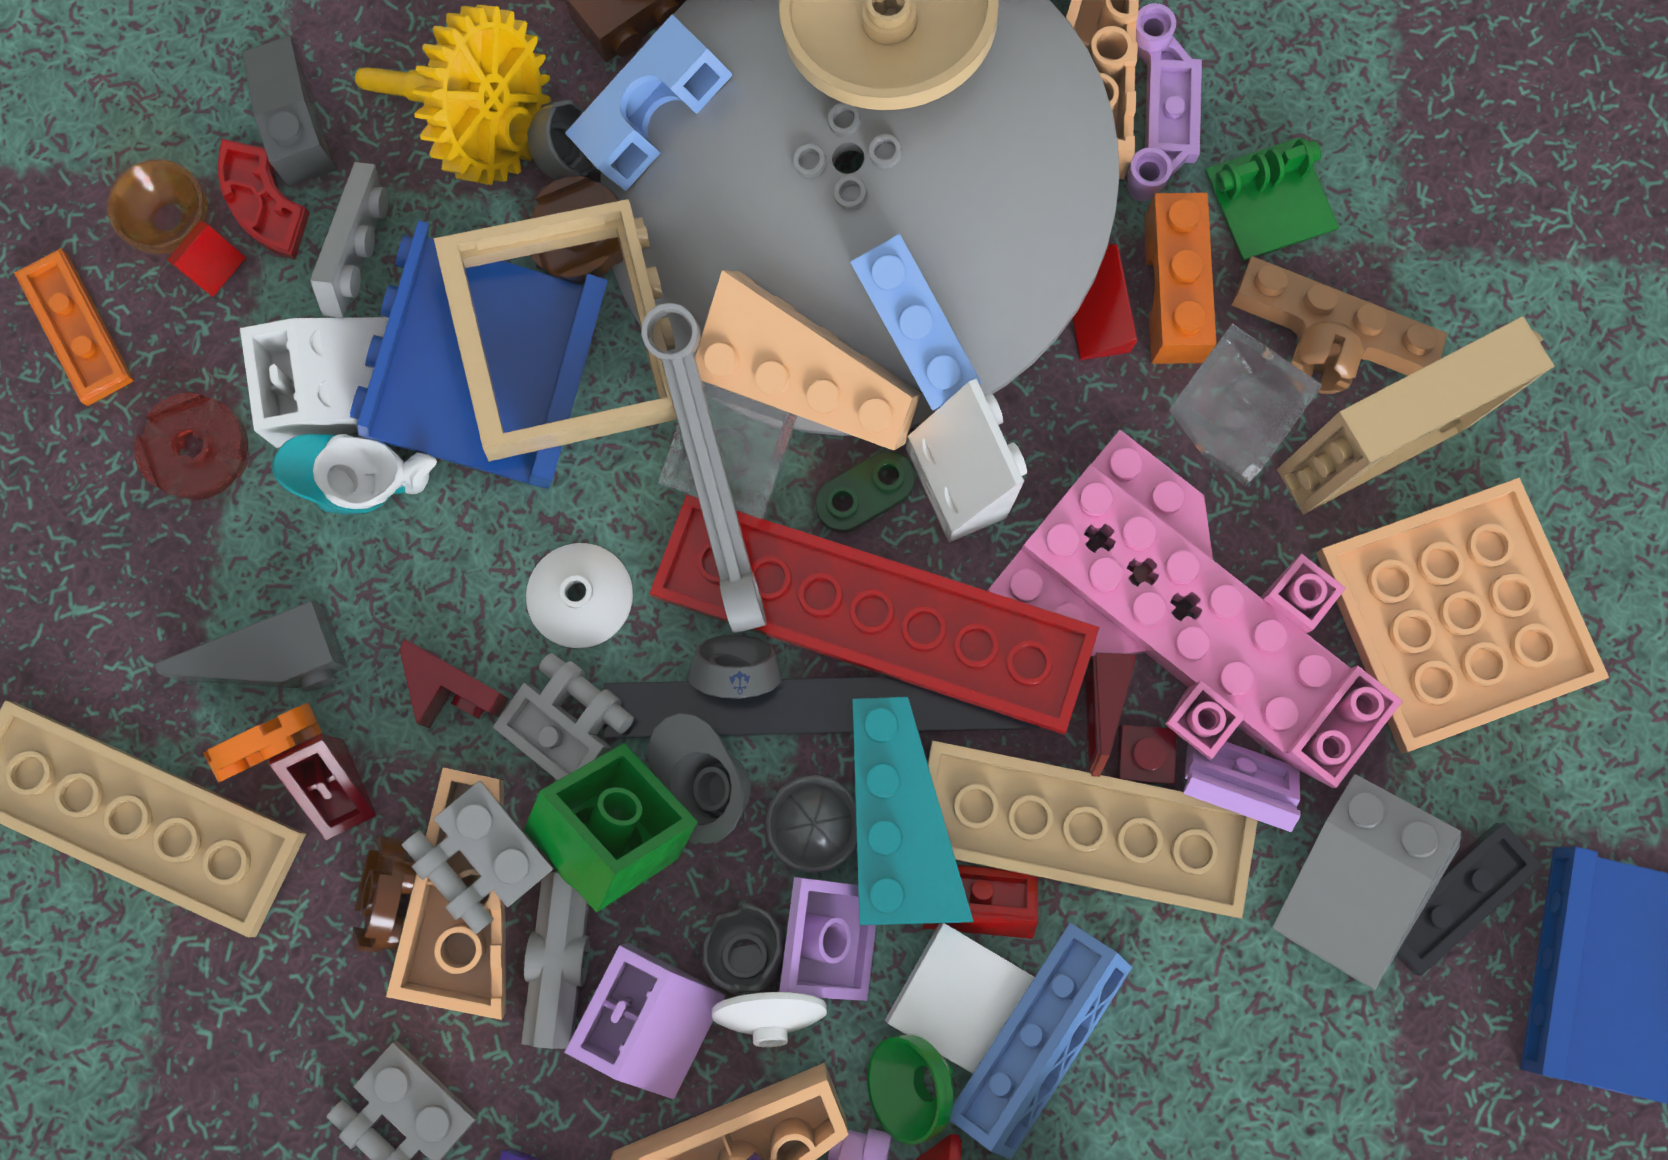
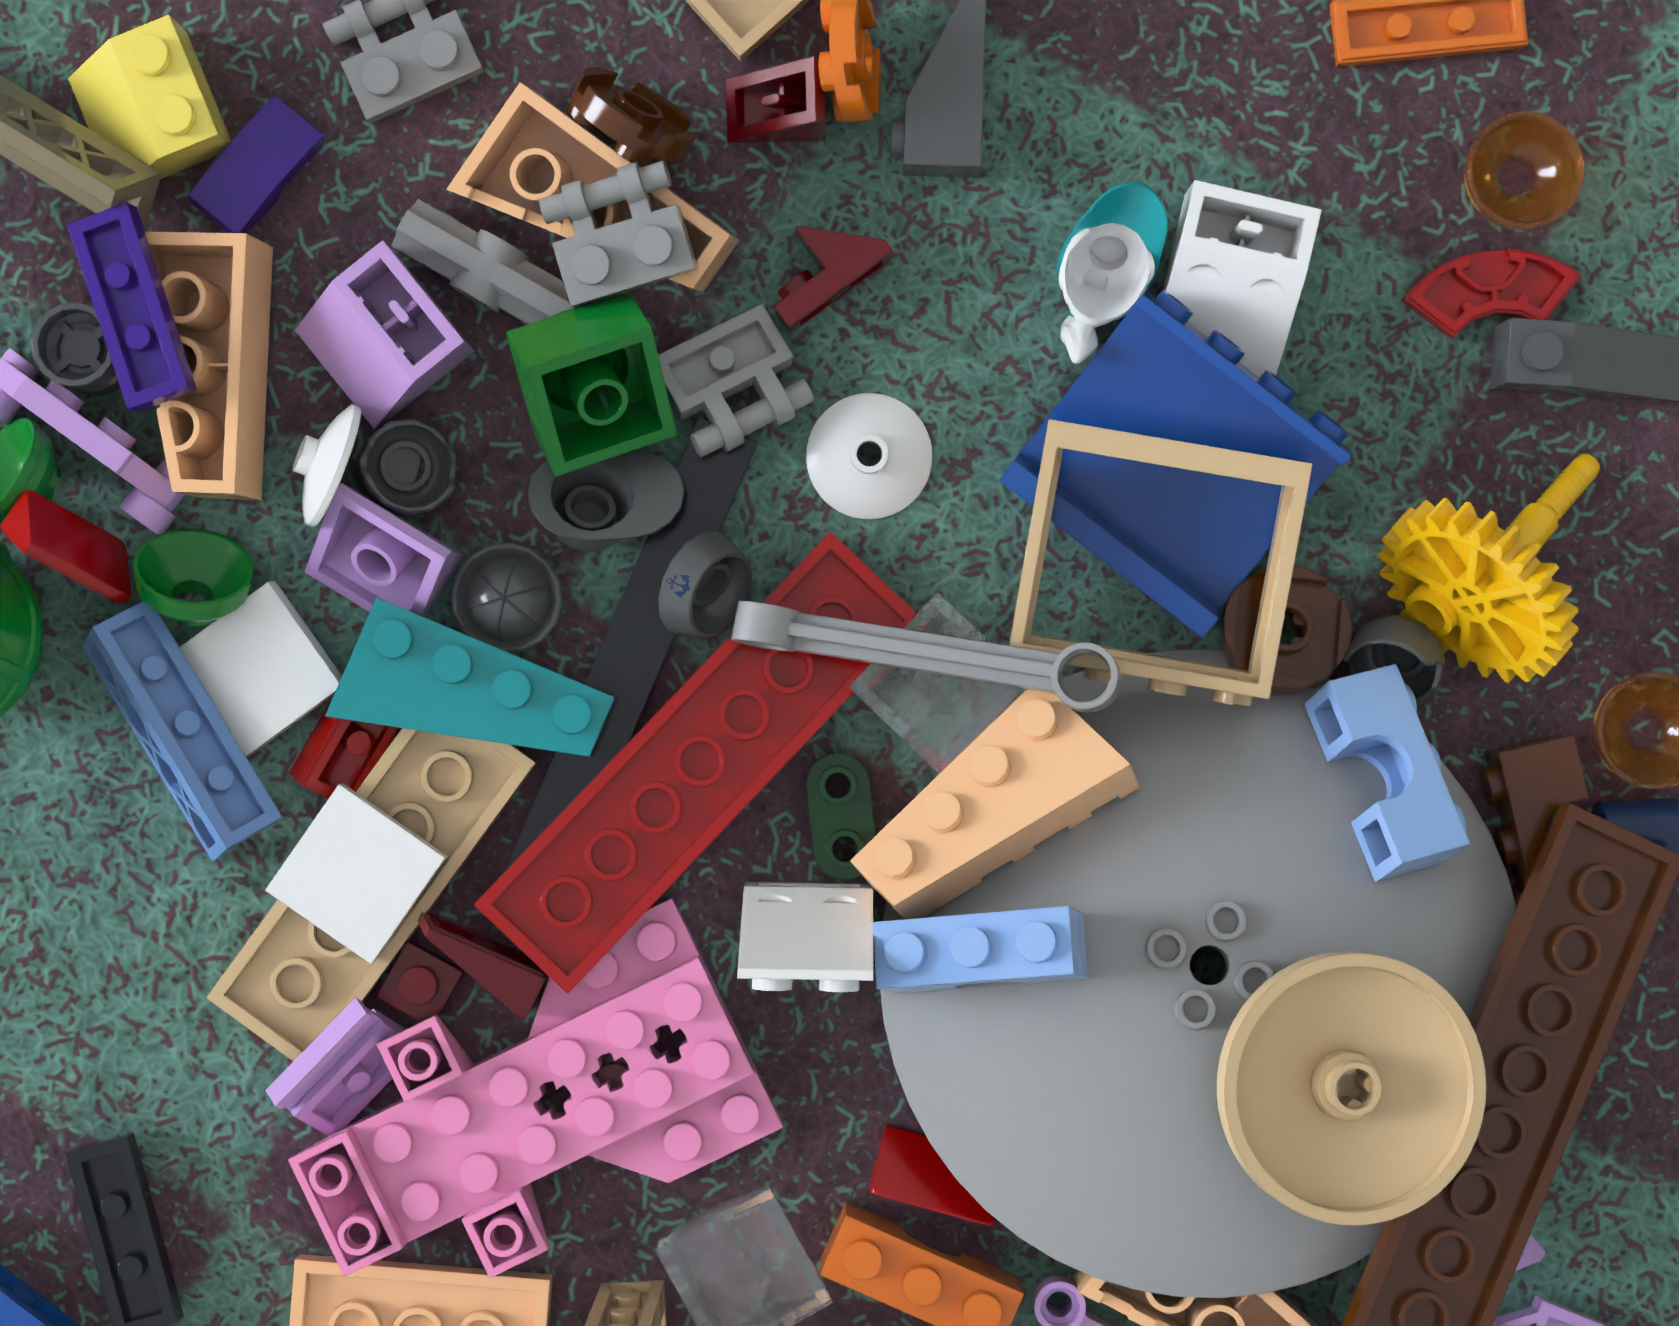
camera: 115 degrees right, 10 degrees up
(166, 433) = (1250, 76): clear red plate -> none
(206, 258) = (1438, 202): red tile -> none
(349, 240) = (1378, 372): light grey plate -> none
(1086, 840) = (356, 873): none -> white tile
(1367, 880) = (182, 1144): light grey slope -> none

